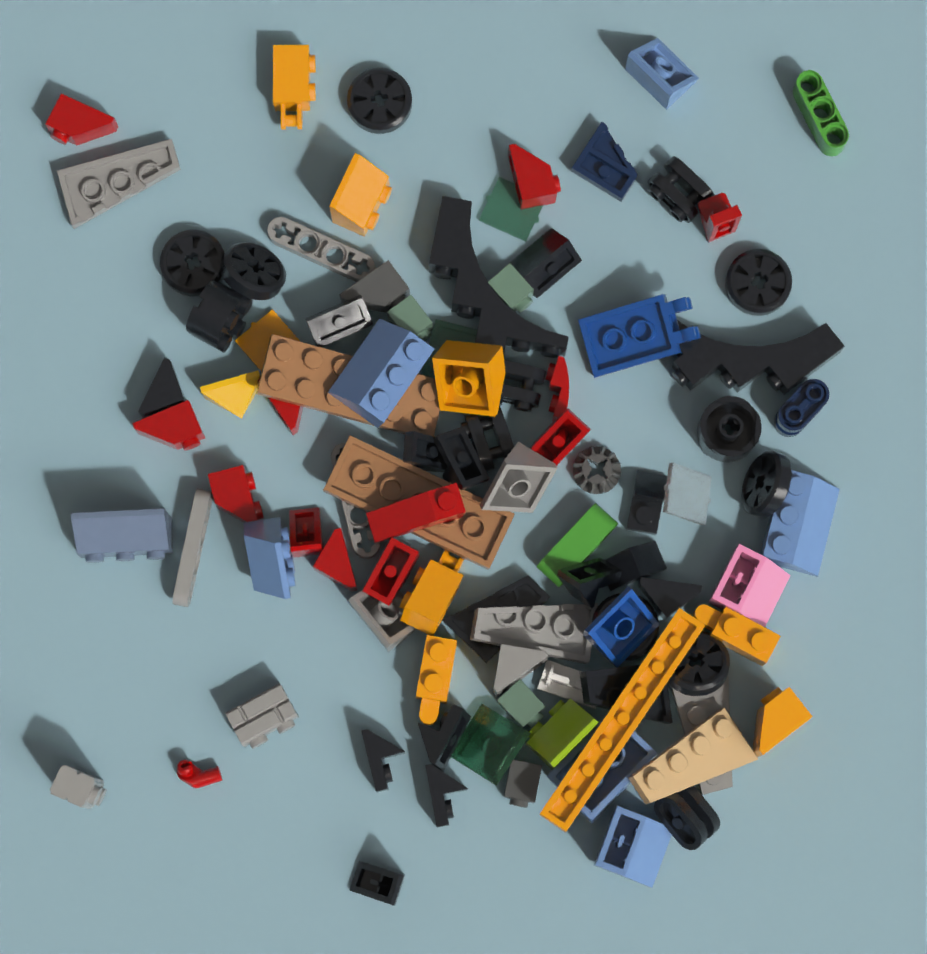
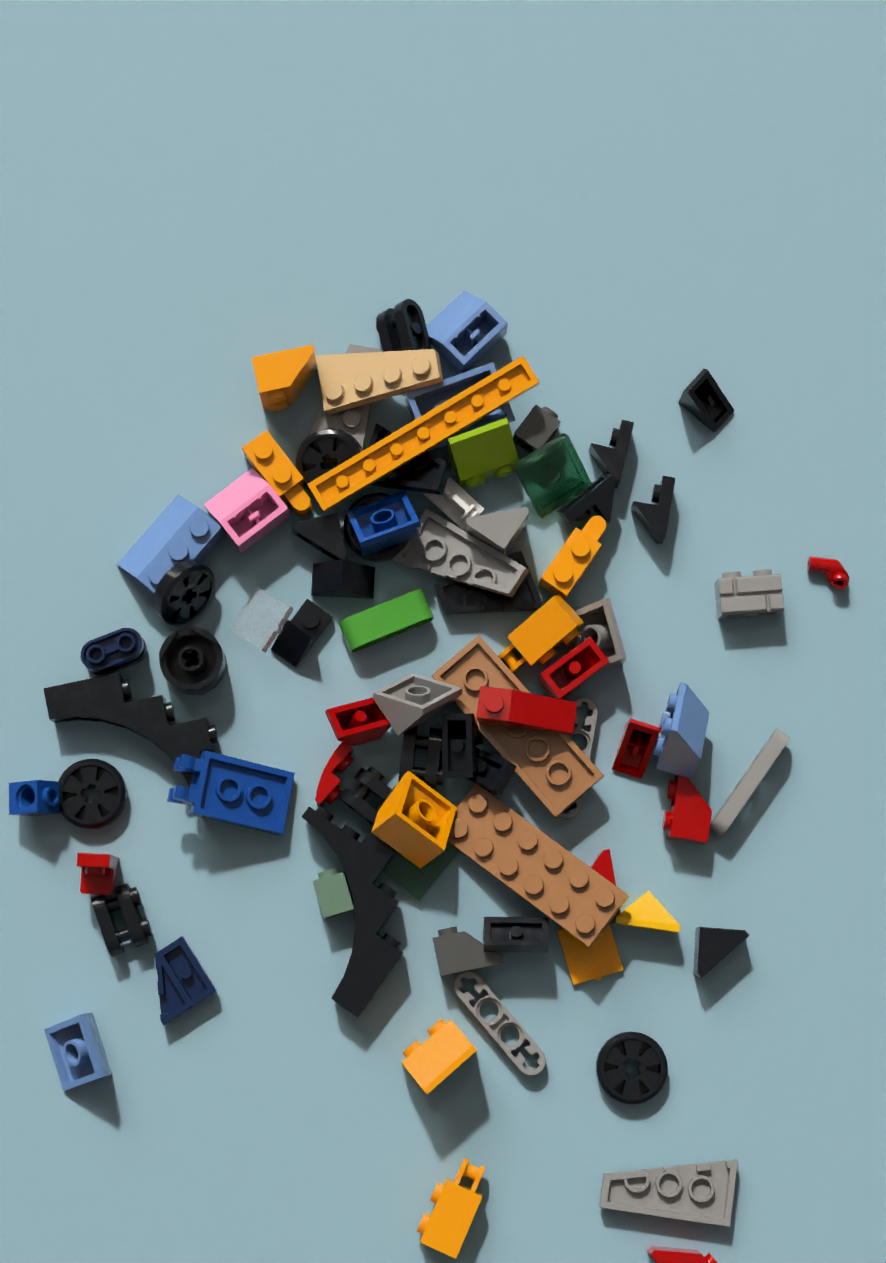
camera: 160 degrees left, 0 degrees up
(122, 534) = (811, 822): sand blue slope -> none
(173, 427) = (719, 907): red slope -> none
(218, 315) = (630, 995): black brick -> none
(253, 271) = (593, 1024): black wheel -> none
(335, 562) = (619, 705): red slope -> none
(368, 114) = (389, 1141): black wheel -> none
(381, 371) = (498, 861): medium blue slope -> none
(411, 317) = (444, 906): sand green brick -> none
(505, 214) = (292, 979): clear green piece -> none
(522, 705) = (505, 493): sand green brick -> none
(532, 178) = (259, 997): red slope -> none
(546, 261) = (287, 909): black panel -> none
(587, 577) = (389, 581): black slope -> none
(596, 484) = (347, 690): dark grey gear -> none
(804, 253) = (34, 798): none -> blue brick

